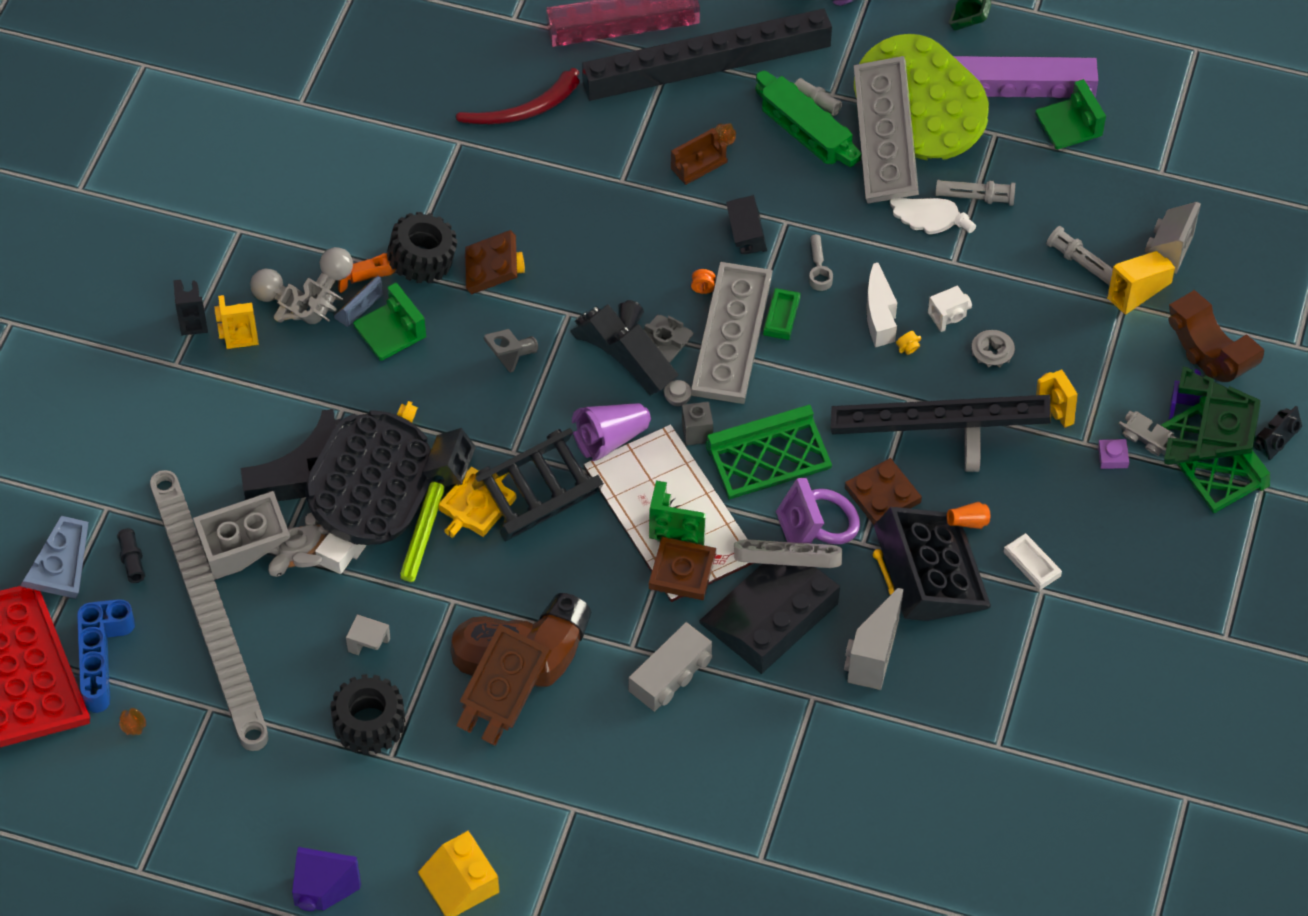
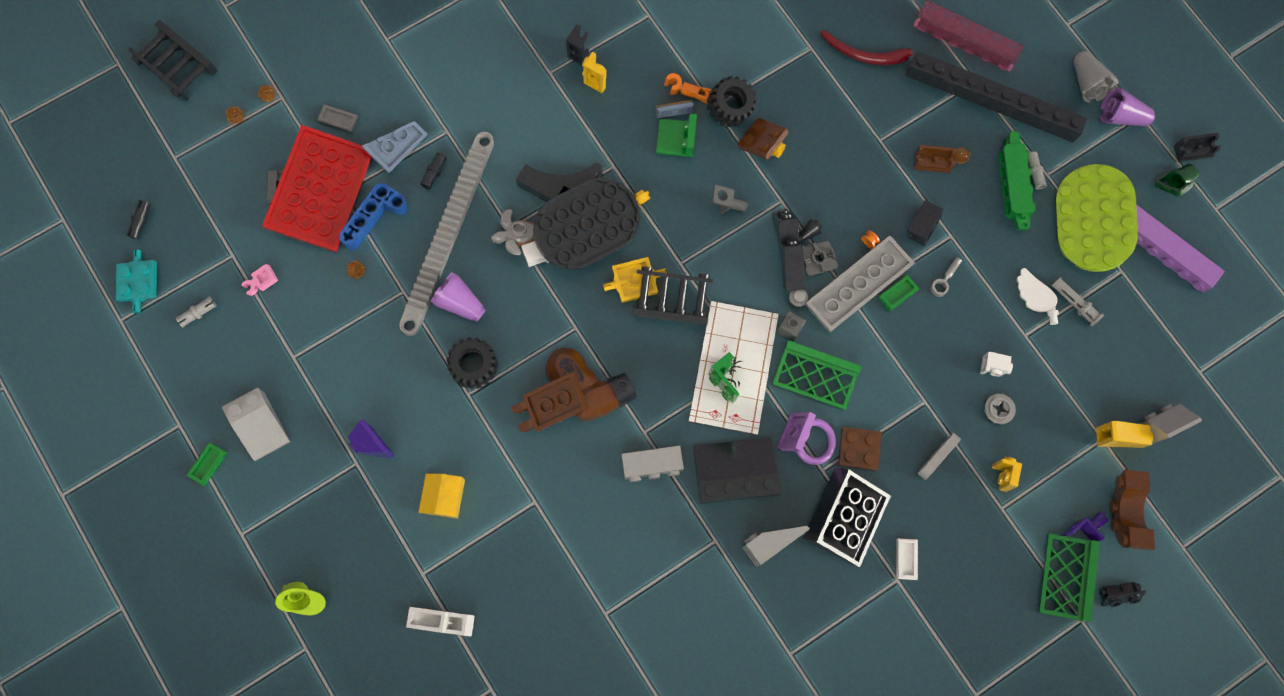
camera: 35 degrees right, 20 degrees up
(22, 812) = (262, 279): none -> bright pink plate
(241, 533) = (492, 203): light grey slope -> none
(268, 286) = (646, 88): light grey piece -> none
(289, 660) = (458, 299): none -> medium lavender cone
(366, 633) = (510, 315): light grey panel -> none
(422, 532) = (591, 275): lime axle -> none
(450, 457) = (640, 243): black hinge -> none
(608, 427) = (741, 292): medium lavender cone -> none
(682, 568) = (708, 409): reddish brown plate -> none
(788, 553) = (769, 449): light grey beam -> none
(878, 555) = (823, 485): yellow hinge -> none
(881, 308) = (956, 334): white slope -> none
(886, 130) = (1056, 223): light grey plate -> none
(908, 343) = (954, 368): yellow plate -> none
(941, 414) = (931, 432): black plate -> none
(971, 515) = (893, 504): orange cone -> none
(1073, 119) = (1176, 298): green bracket -> none
(1074, 250) = (1104, 382): light grey pin -> none
(1113, 454) = (1012, 530): medium lavender plate -> none
(1137, 429) = (1043, 543): light grey hinge -> none
(1226, 422) = (1093, 571): dark green wing -> none

